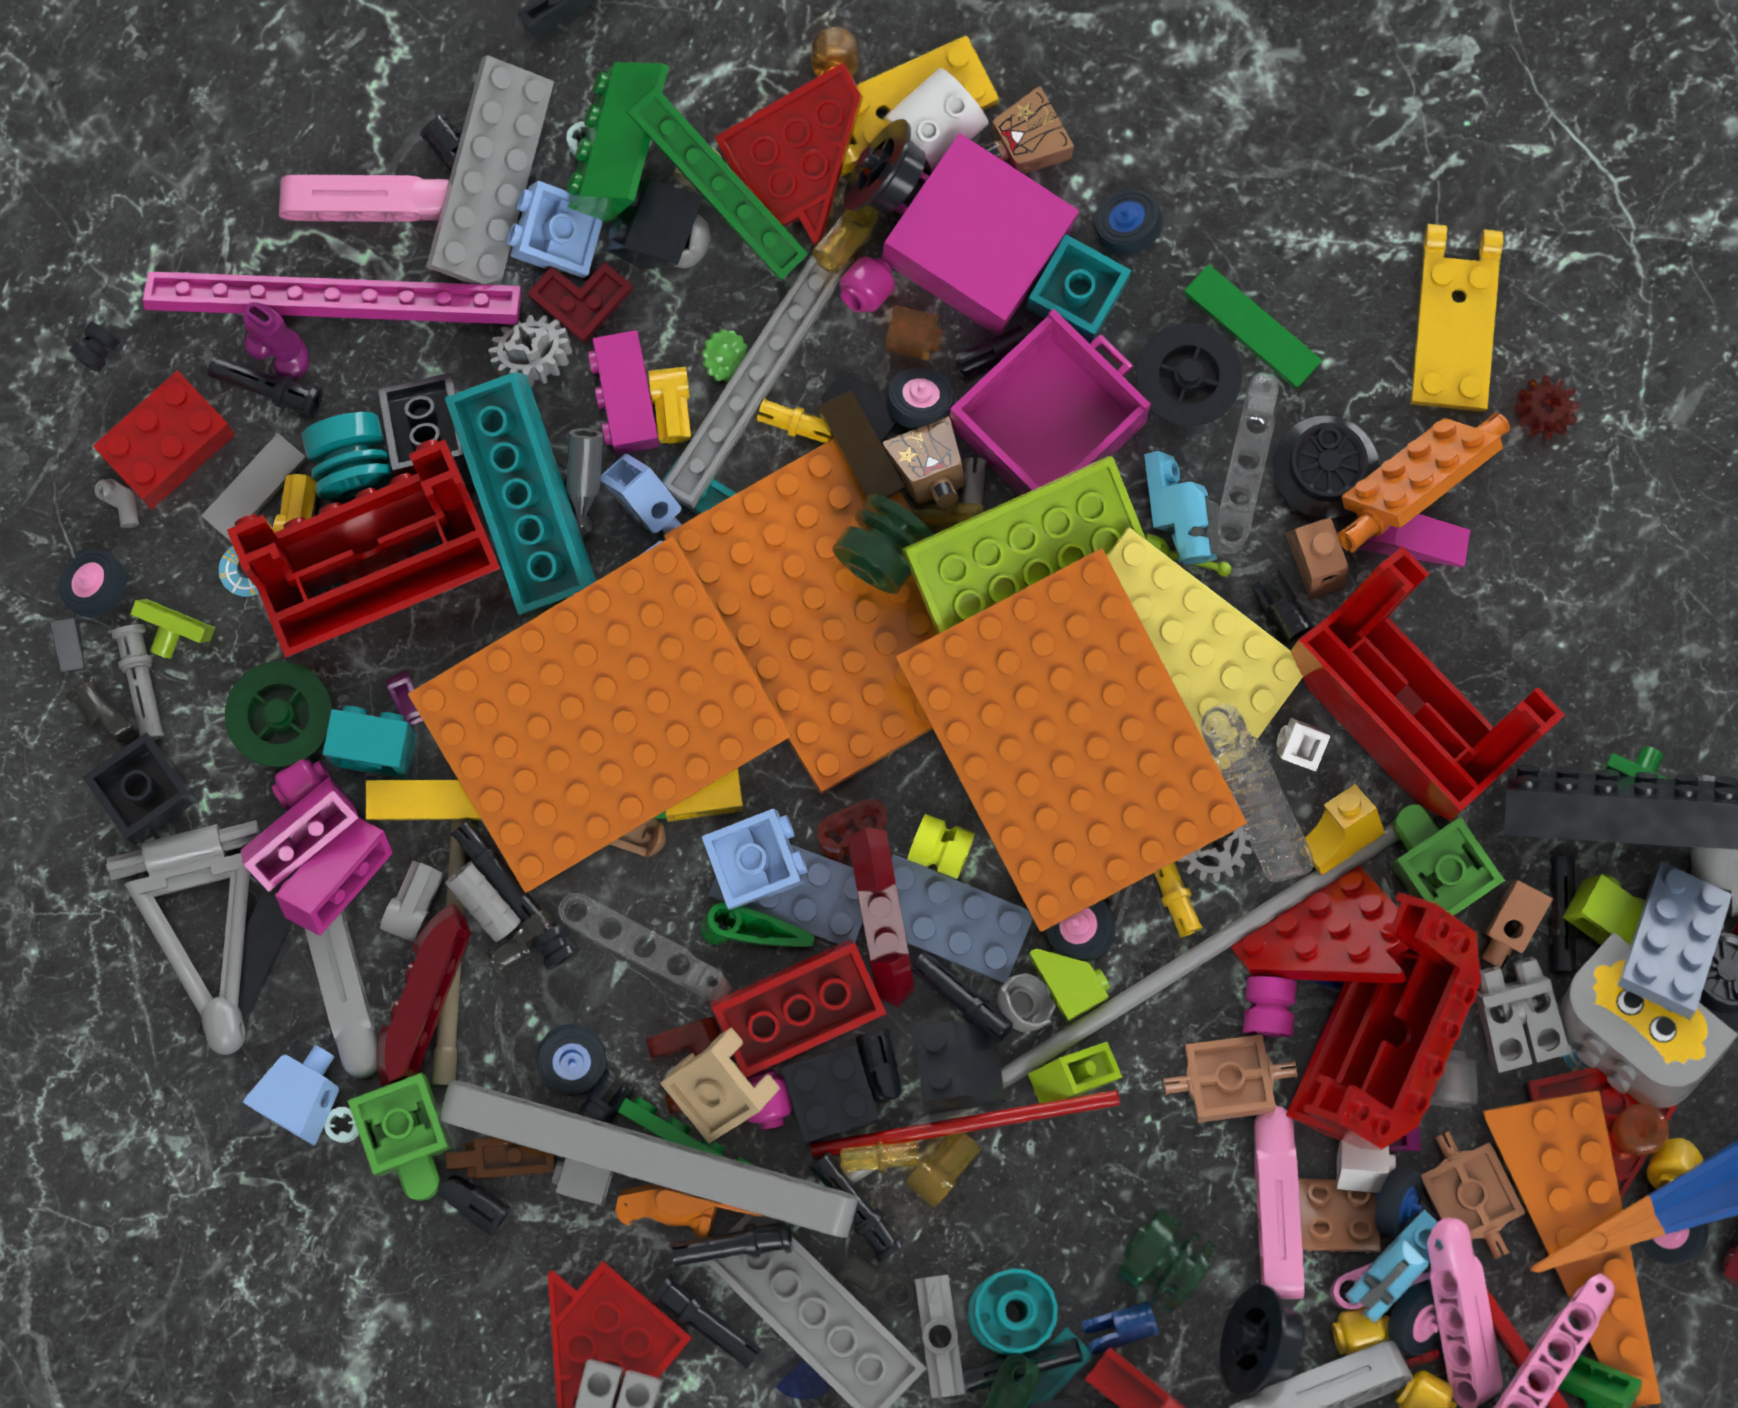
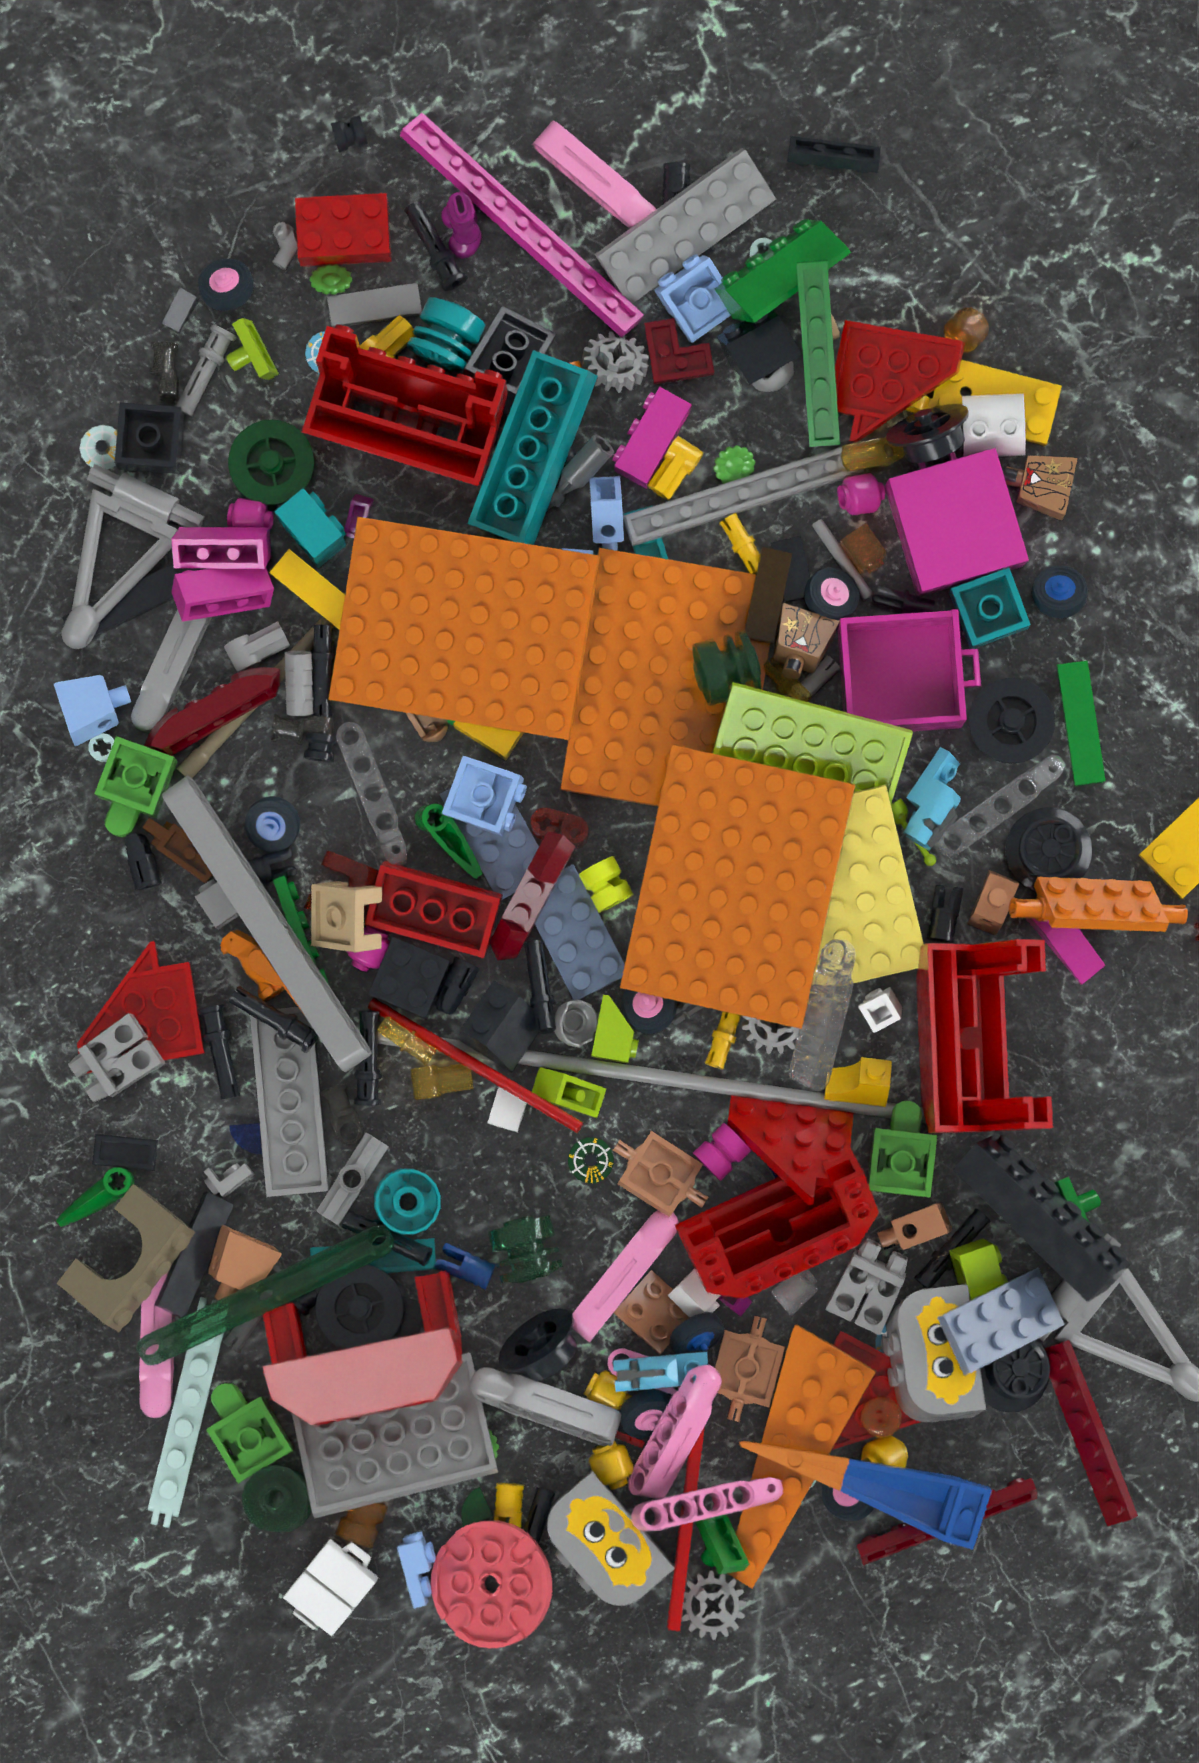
camera: 40 degrees right, 5 degrees up
(98, 838) = (99, 446): none -> light aqua piece
(191, 496) = (331, 279): none -> bright green piece
(897, 358) = (841, 557): none -> light grey bar
(1032, 1143) = (507, 1111): none -> white brick
(1150, 1123) = (590, 1160): none -> dark green piece

